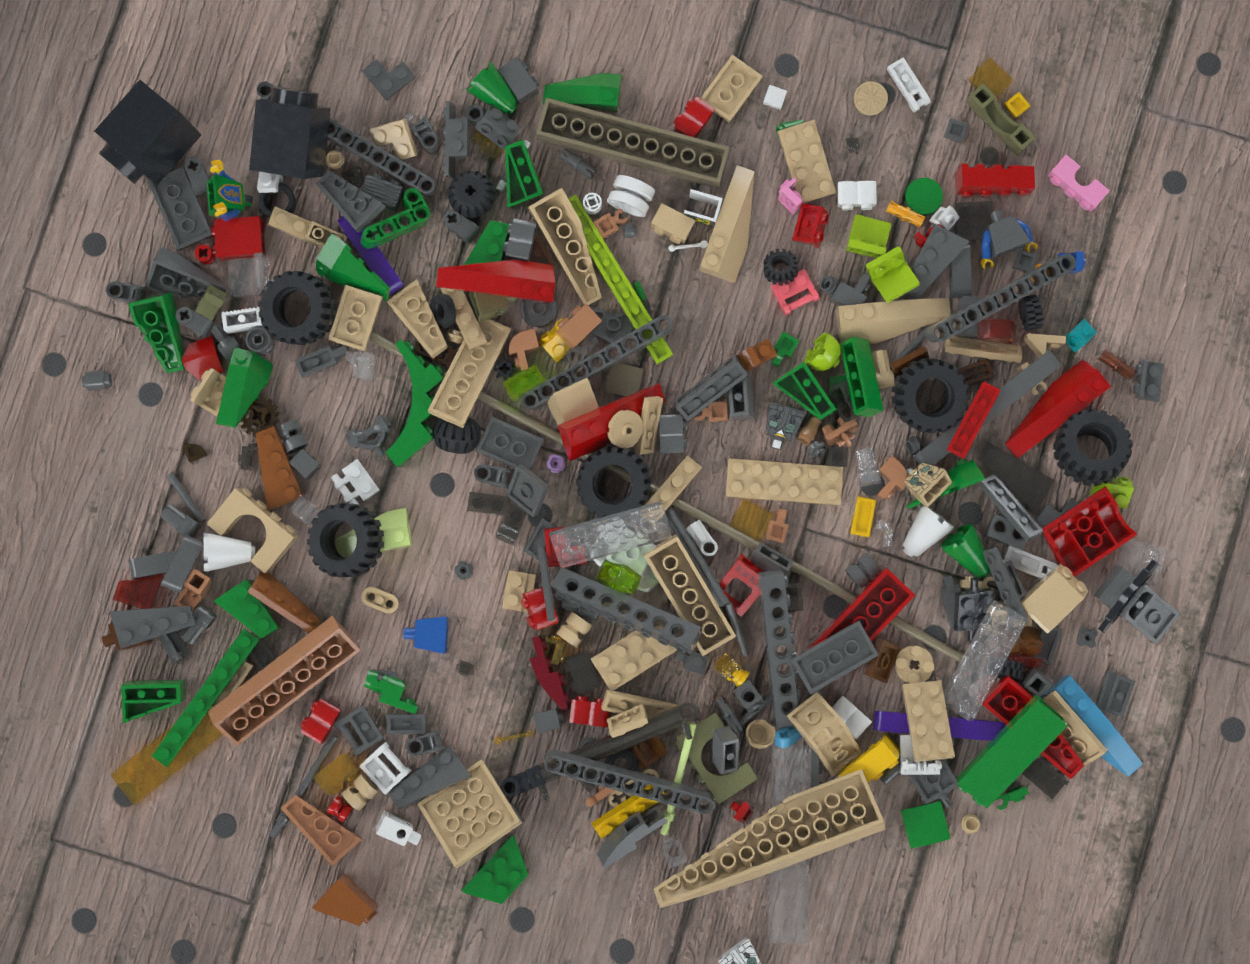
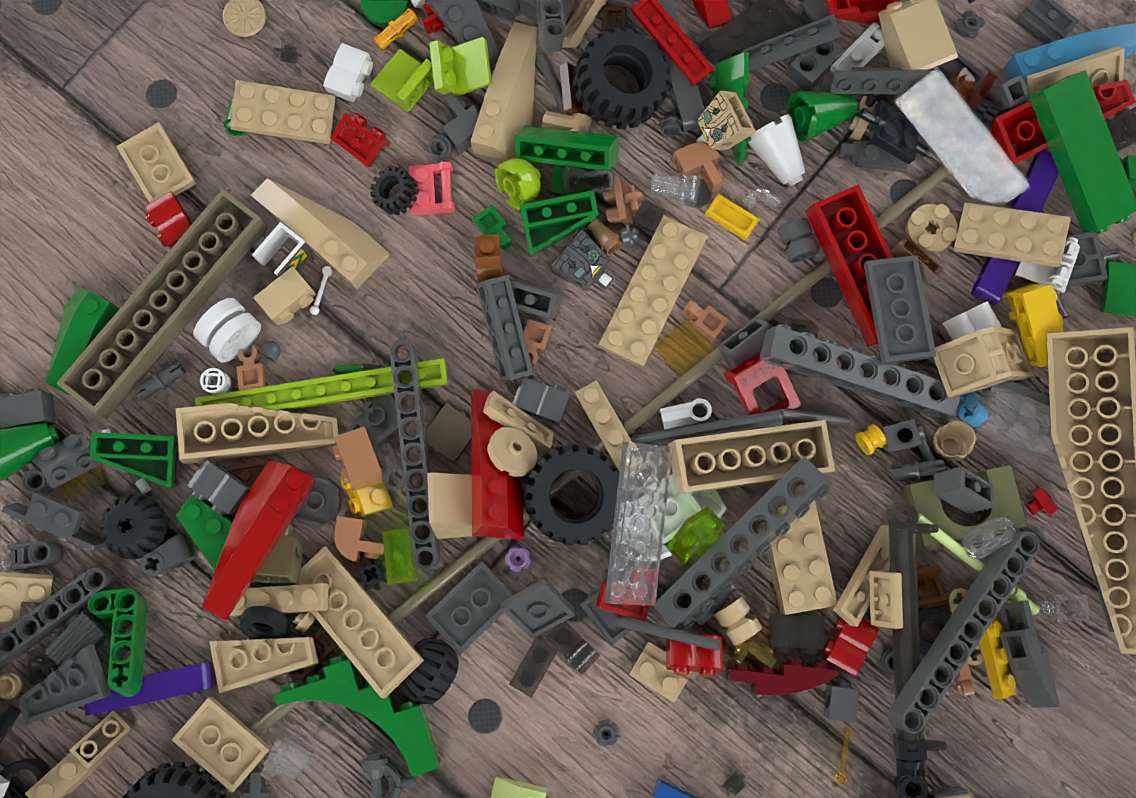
camera: 65 degrees left, 5 degrees down
(343, 268) = (147, 735): green wedge -> none
(493, 476) = (501, 644): dark grey piece -> none
(694, 662) = (839, 486): dark grey plate -> none
(697, 777) = (986, 537): none -> clear plate
(726, 666) = (856, 448): clear yellow plate -> none
(774, 97) = (191, 120): white tile -> none
(790, 198) = (315, 146): bright pink bracket -> none

